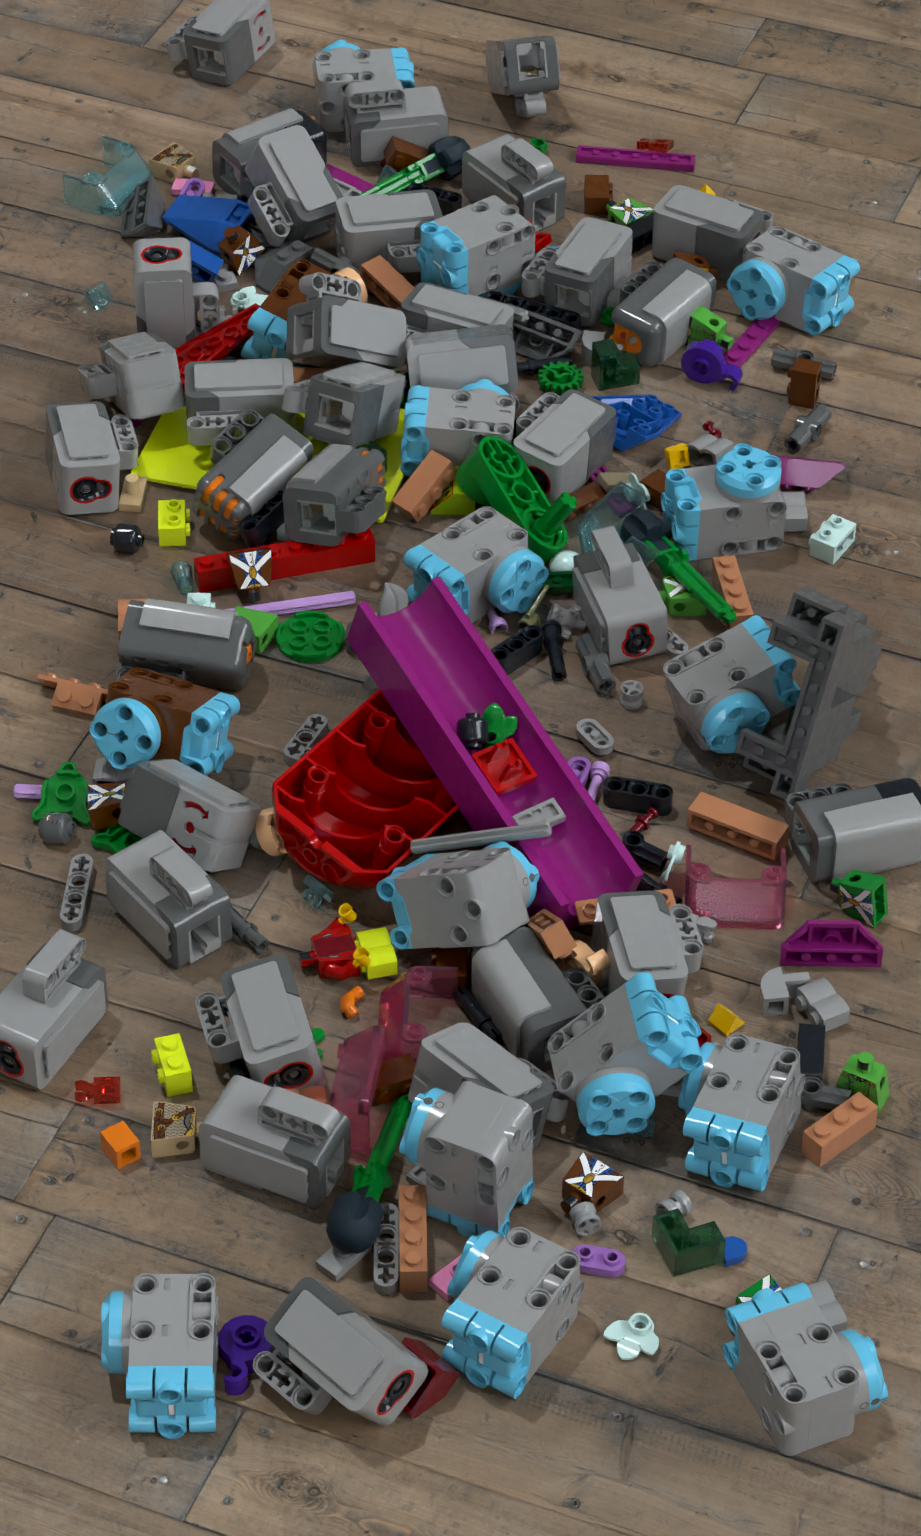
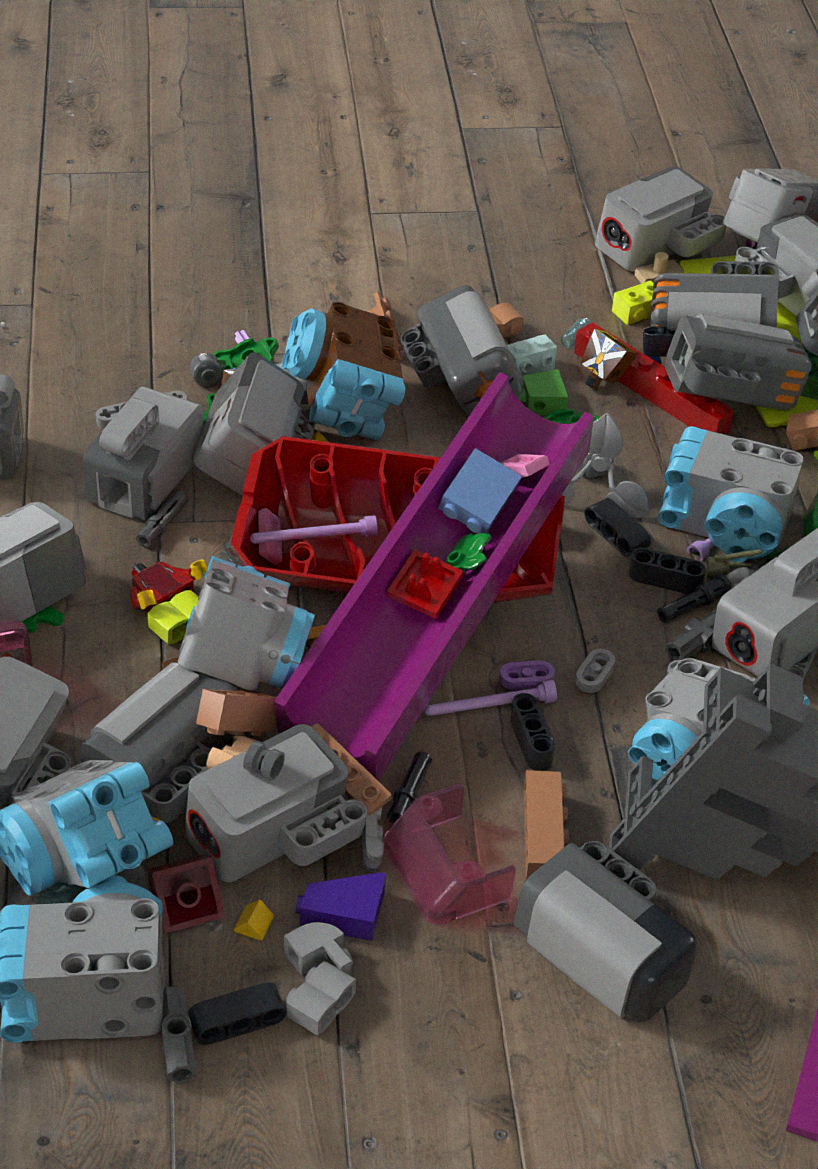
camera: 60 degrees right, 0 degrees up
(127, 538) = (593, 284): black head -> none
(305, 603) = (600, 408): lavender axle -> none
(349, 999) = (108, 621): orange arm -> none
(374, 790) = (365, 527): none -> lavender piece
(394, 1005) = (104, 660): clear pink windscreen -> none
(442, 646) = (526, 464): none -> bright pink plate
(452, 685) = (479, 492): none -> medium blue brick
(473, 731) = (442, 536): black head -> none
(481, 837) = (316, 603): light grey axle -> none
(547, 811) = (390, 642): light grey plate -> none
(638, 924) = (263, 760): none -> dark grey wheel
(642, 823) = (491, 750): dark red piece -> none
(644, 851) = (453, 760): black piece -> none
(675, 854) = (446, 779): light aqua plate -> none
(747, 961) = (346, 903): none -> dark purple slope
(831, 945) = (415, 971): magenta wedge -> none
(839, 1129) = (130, 1078): nougat brick -> none
(862, 896) = (512, 962): green torso -> none
(867, 1077) = (211, 1067): bright green torso -> none

